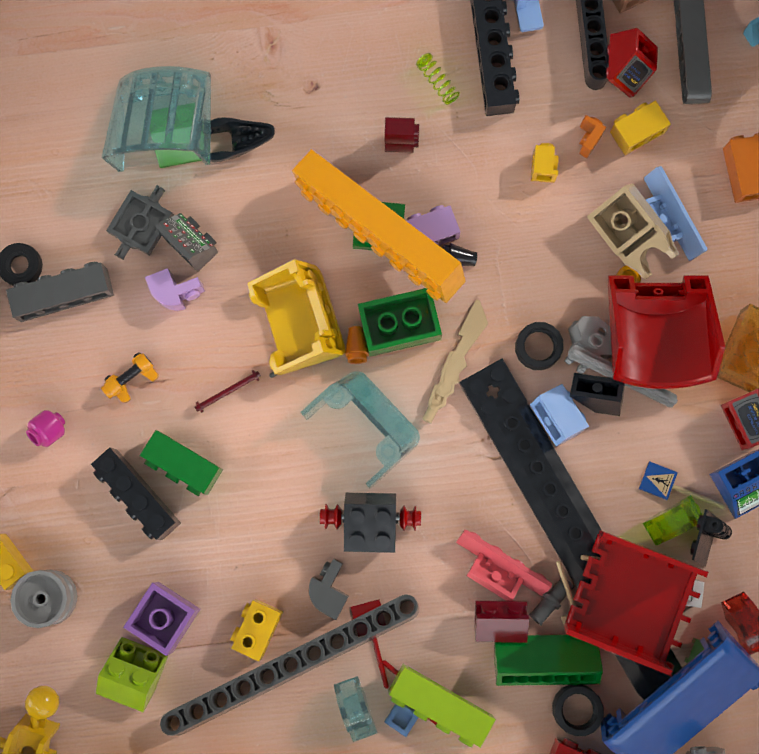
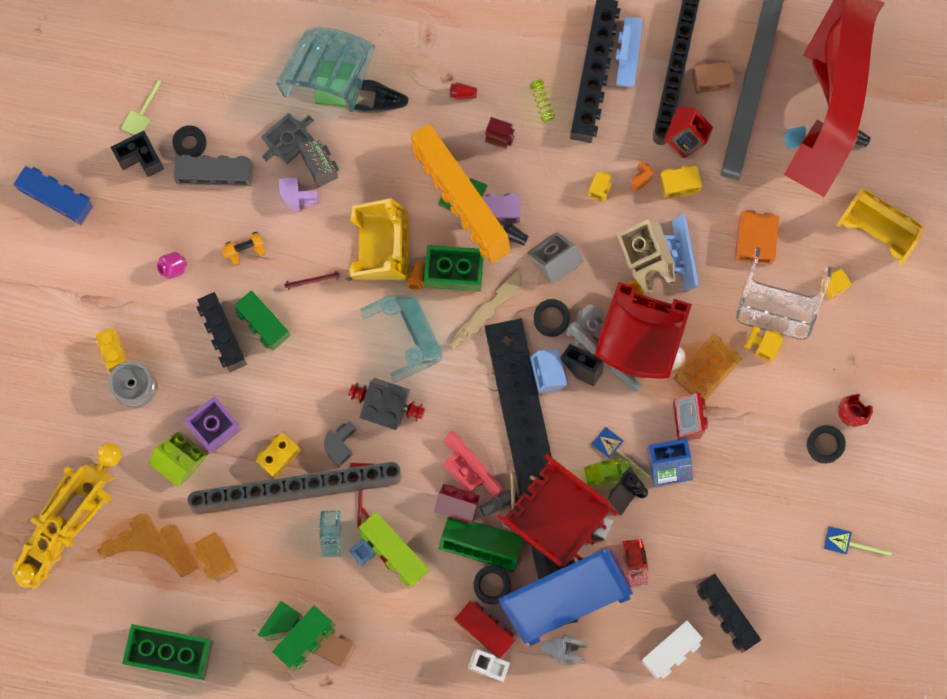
camera: 10 degrees right, 5 degrees down
(336, 97) = (462, 91): none -> red cone
(519, 268) = (555, 257): none -> light grey slope

